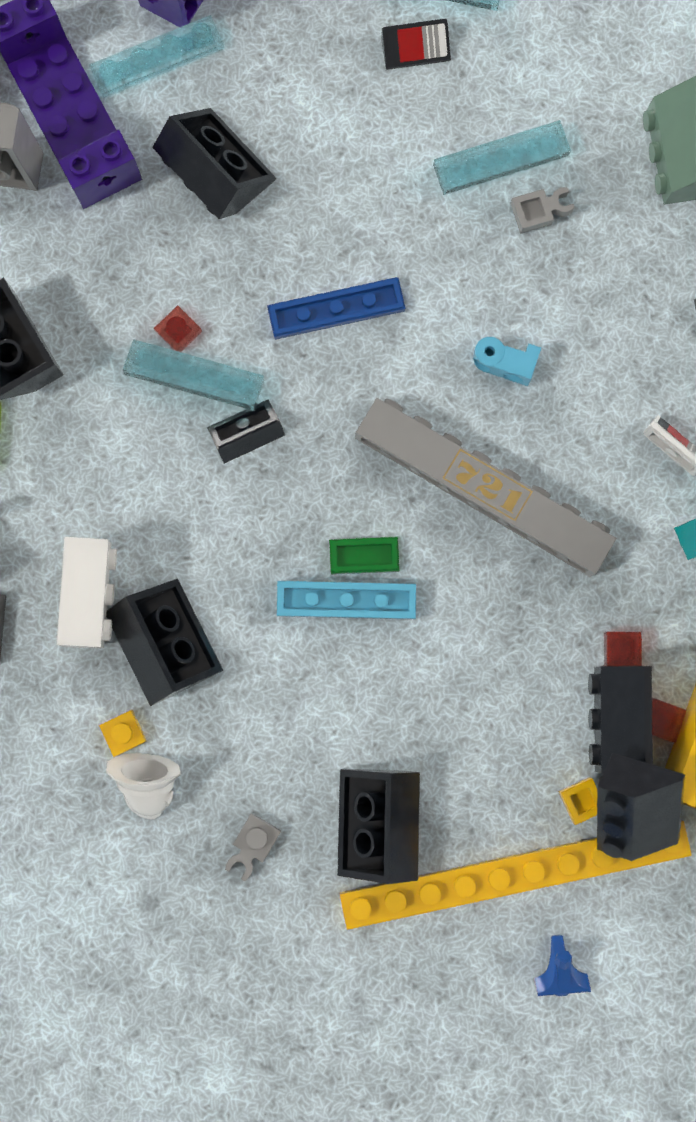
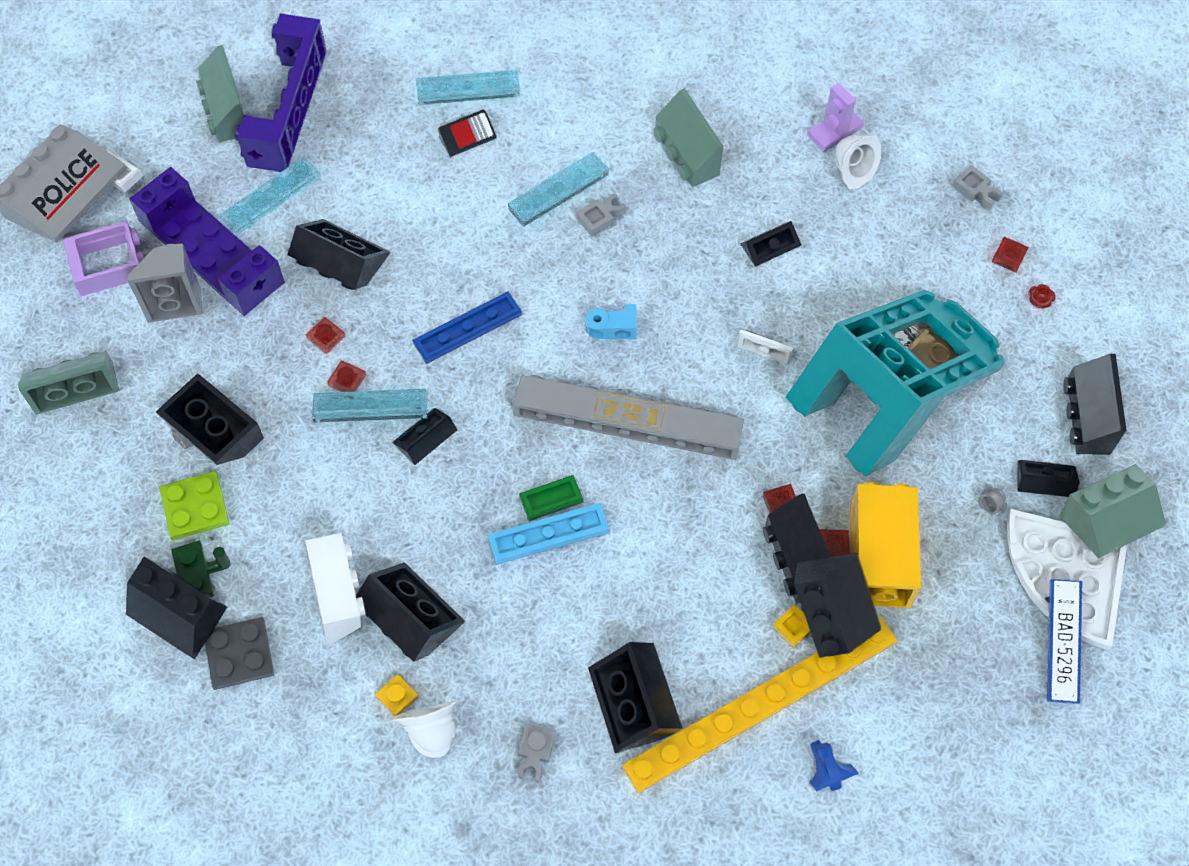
camera: 15 degrees left, 20 degrees down
(169, 266) = (325, 335): none -> clear red plate

